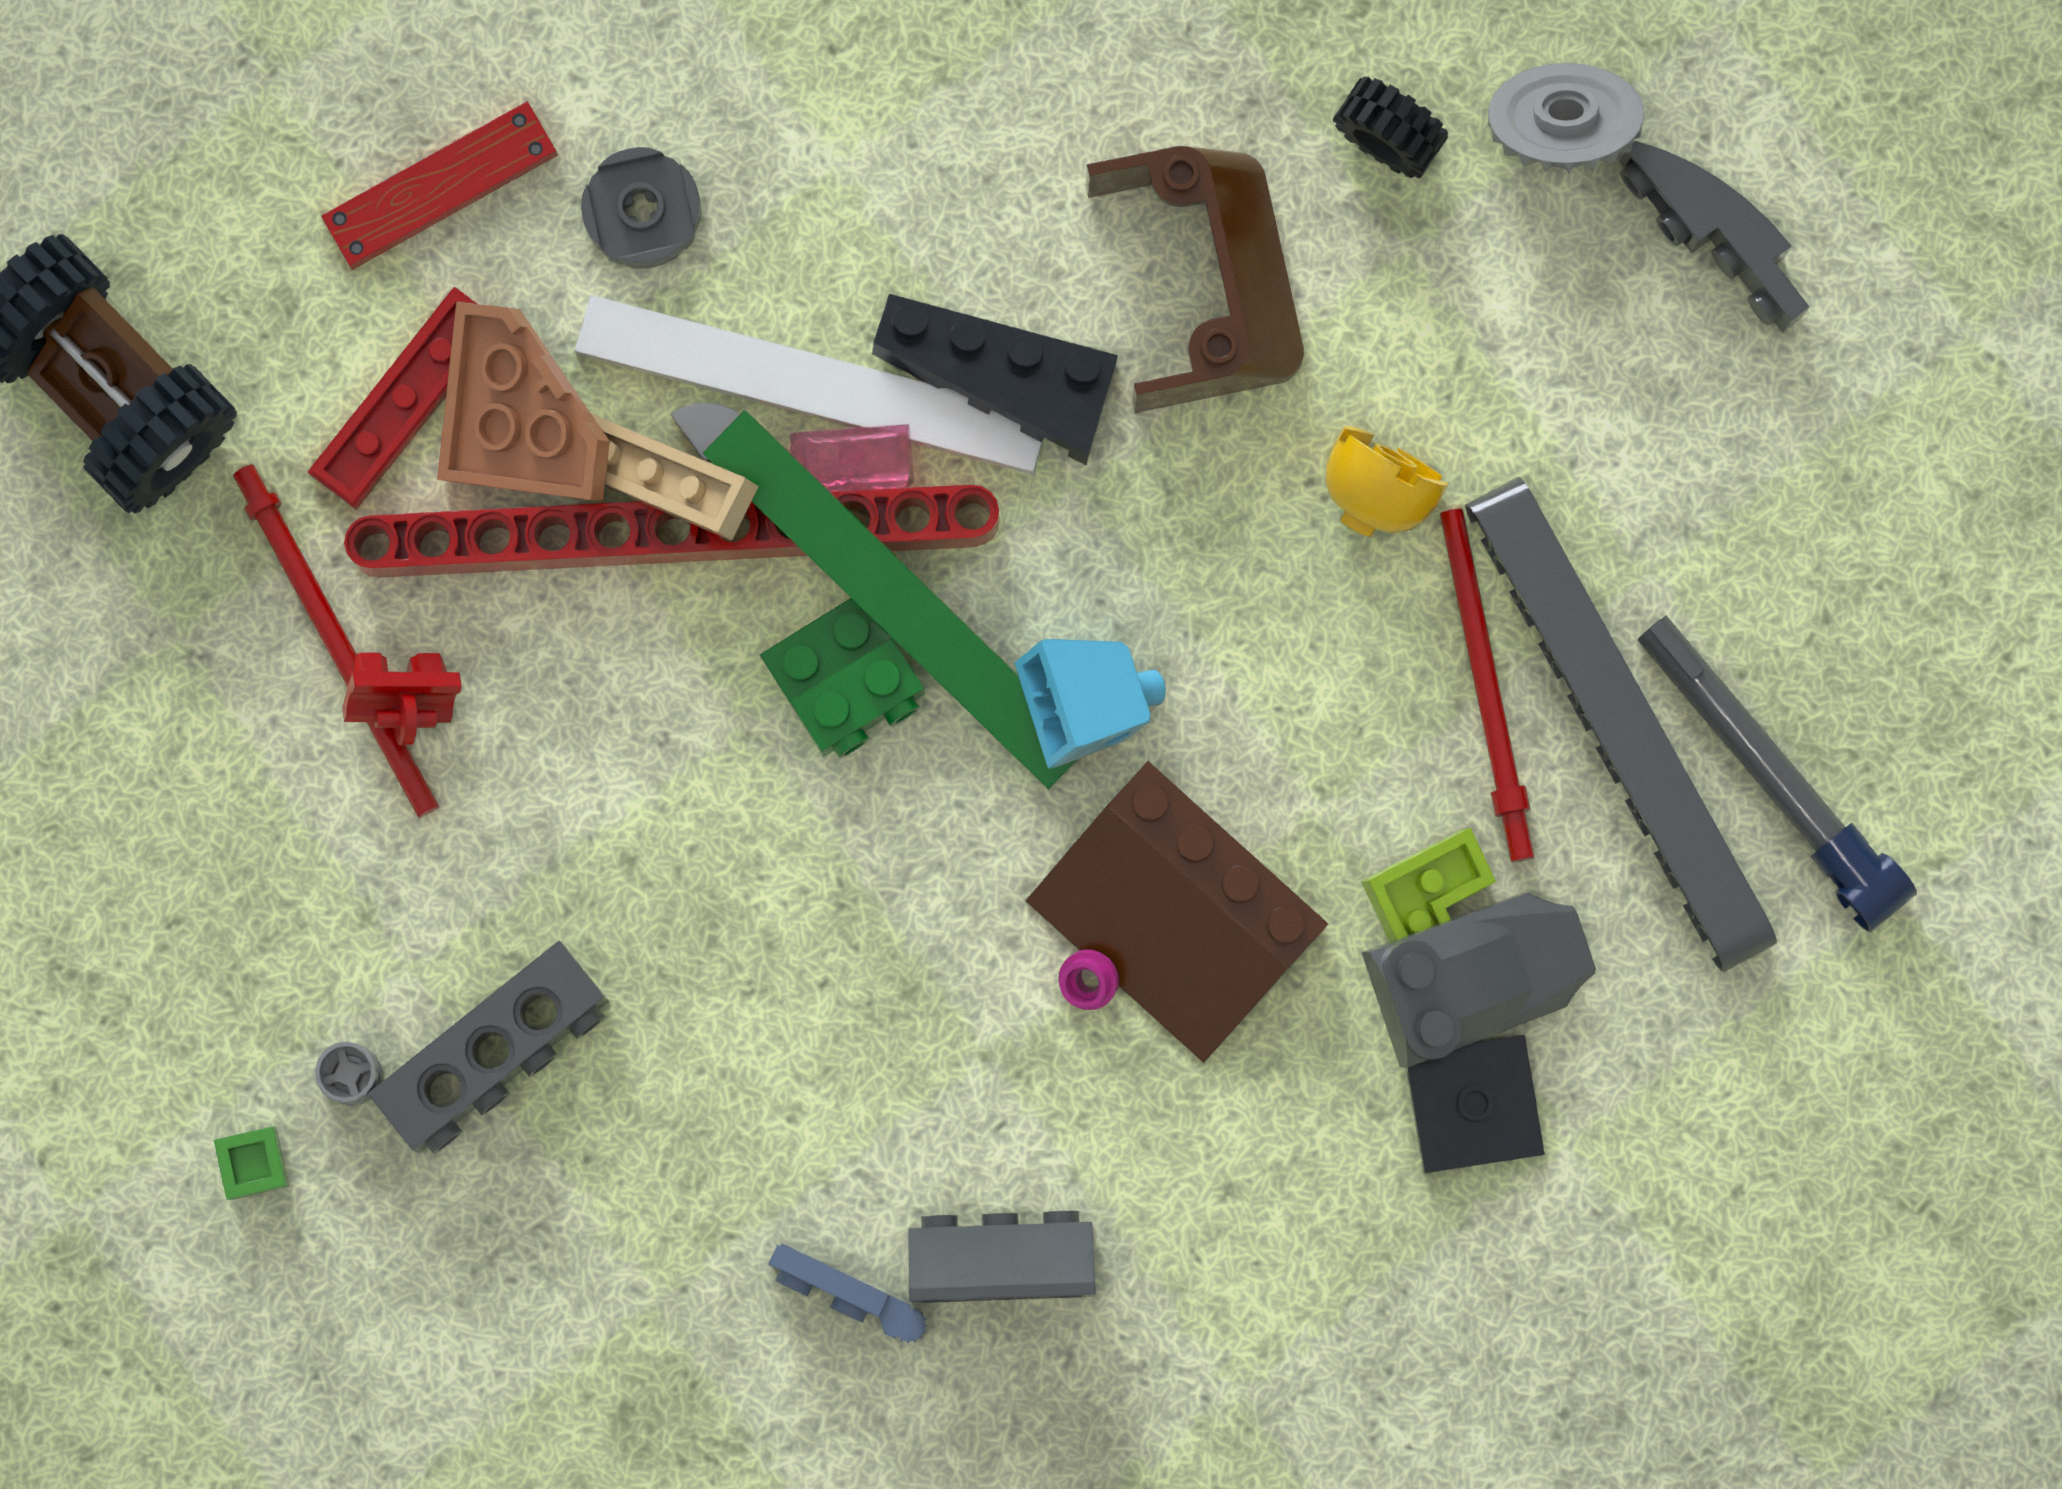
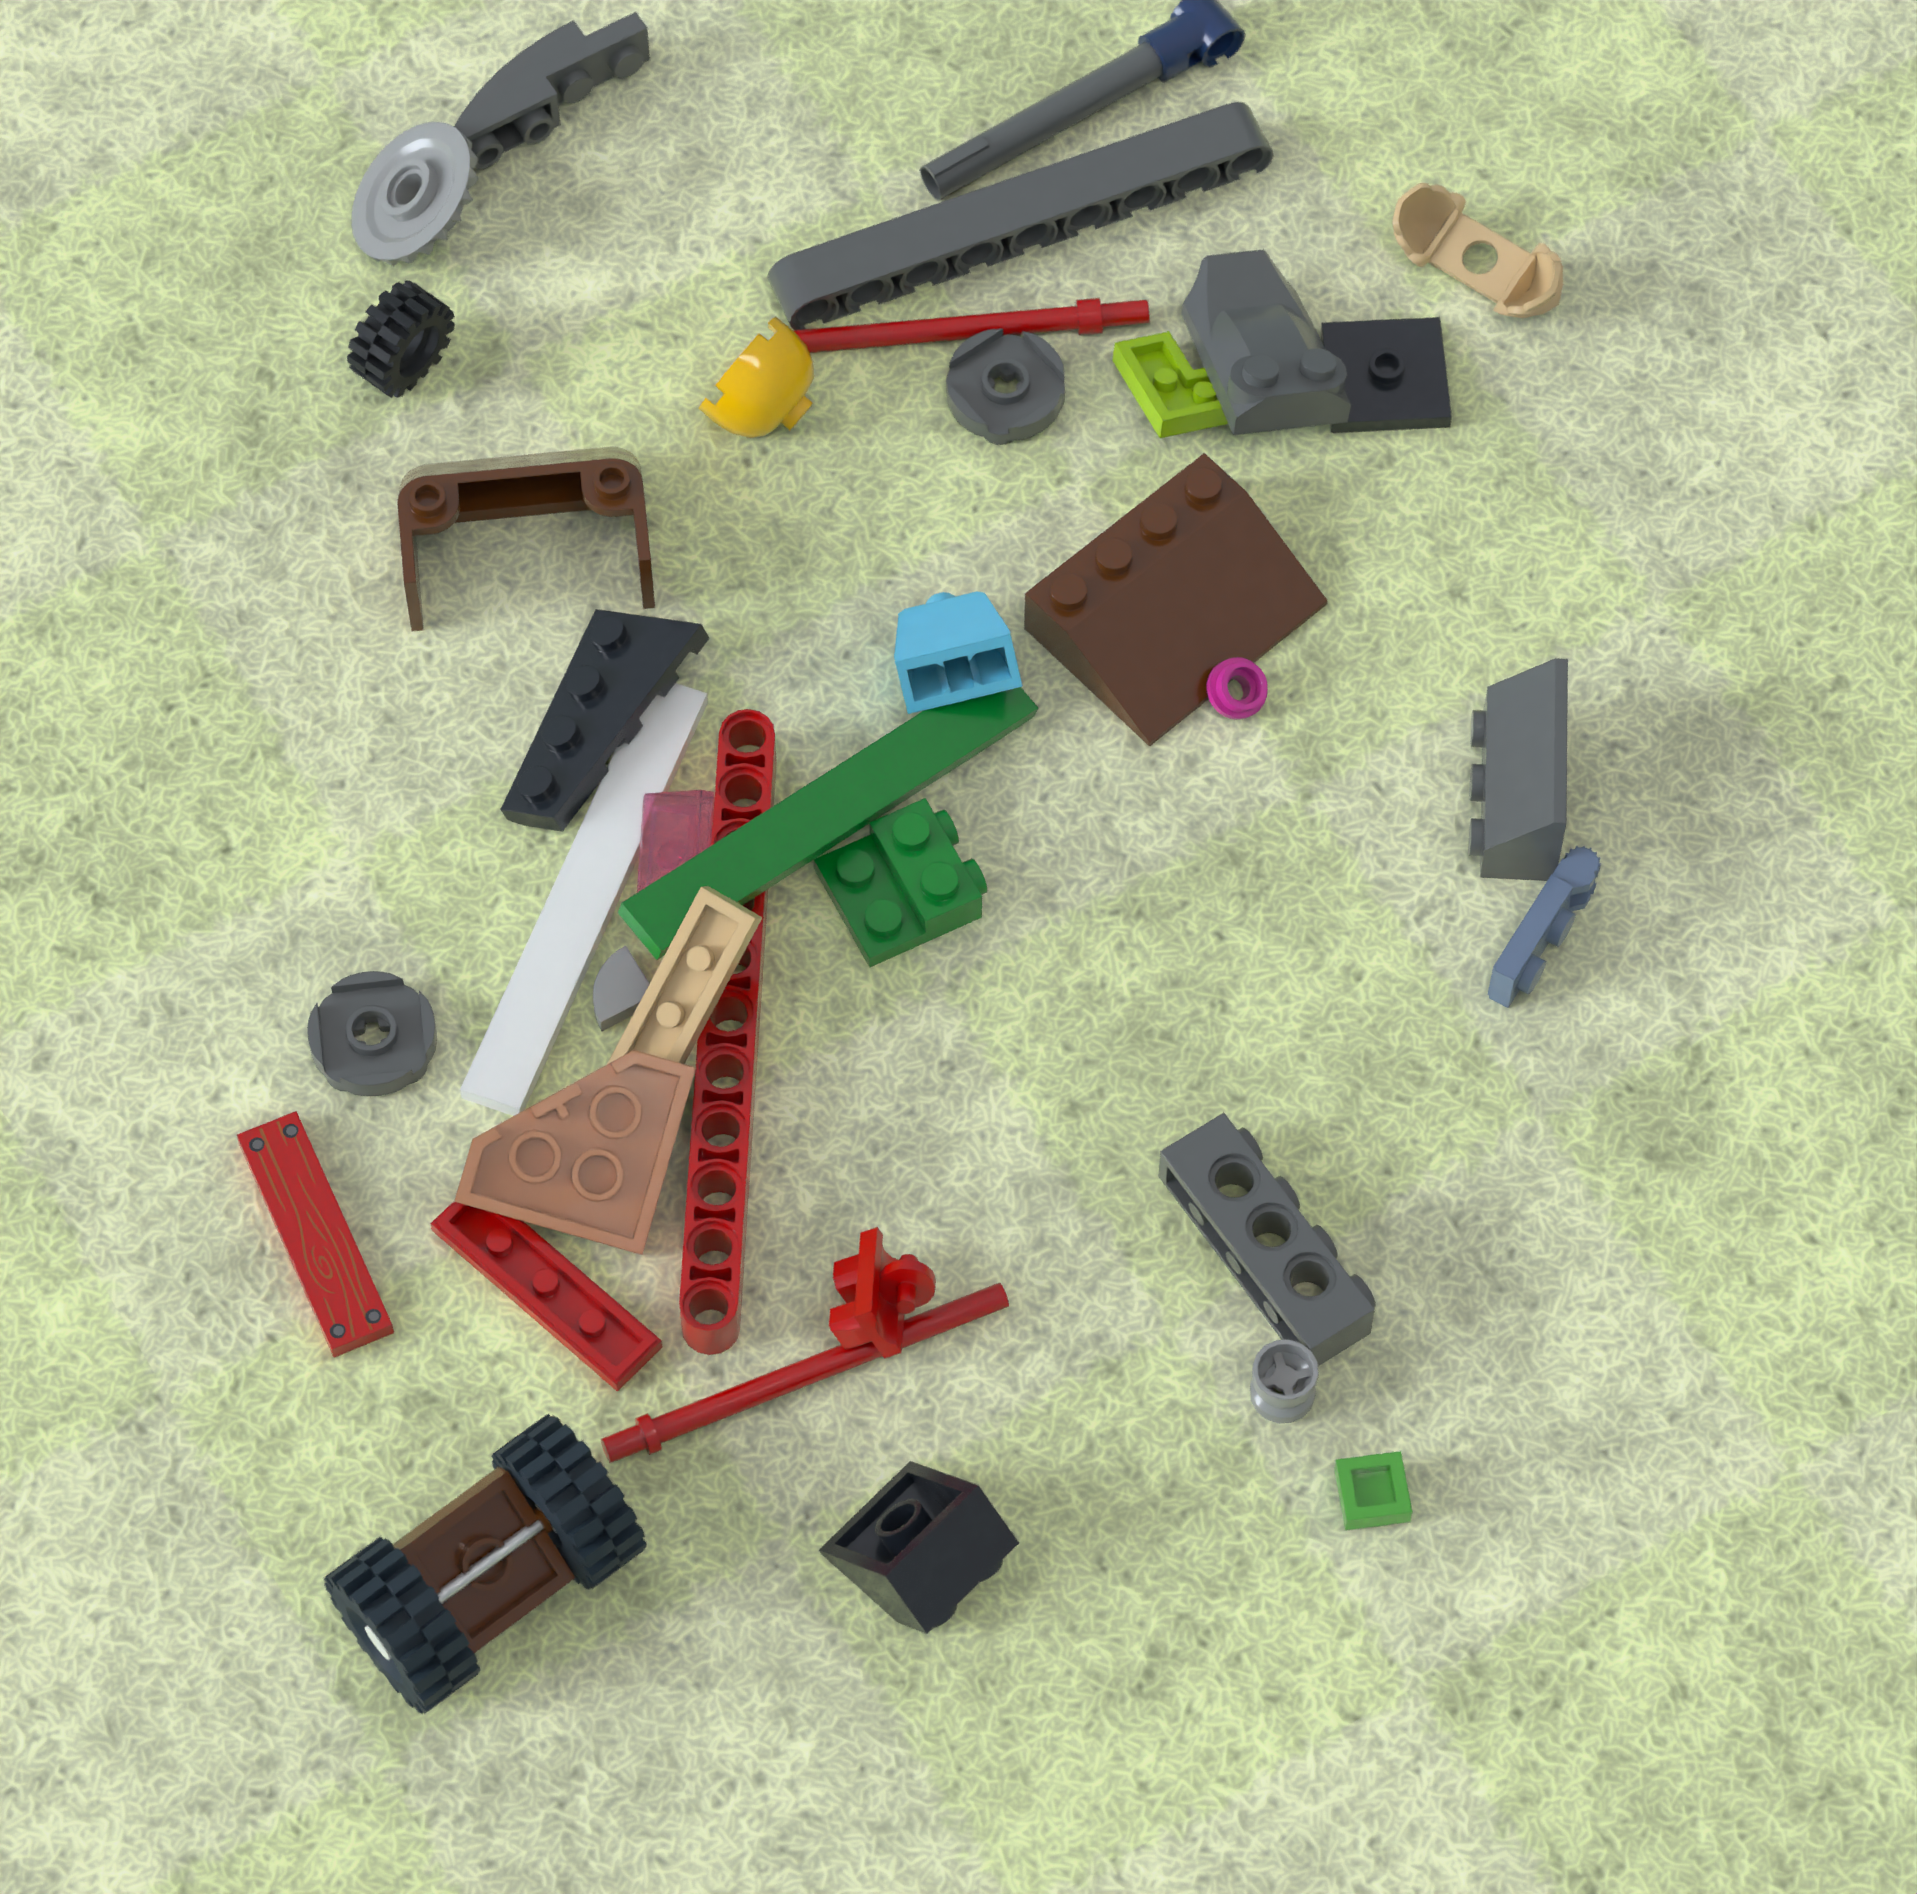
camera: 85 degrees left, 20 degrees down
(164, 756) = (921, 1545): none -> black slope
(1416, 690) = (1005, 415): none -> dark grey plate
(1647, 1148) = (1436, 232): none -> tan piece

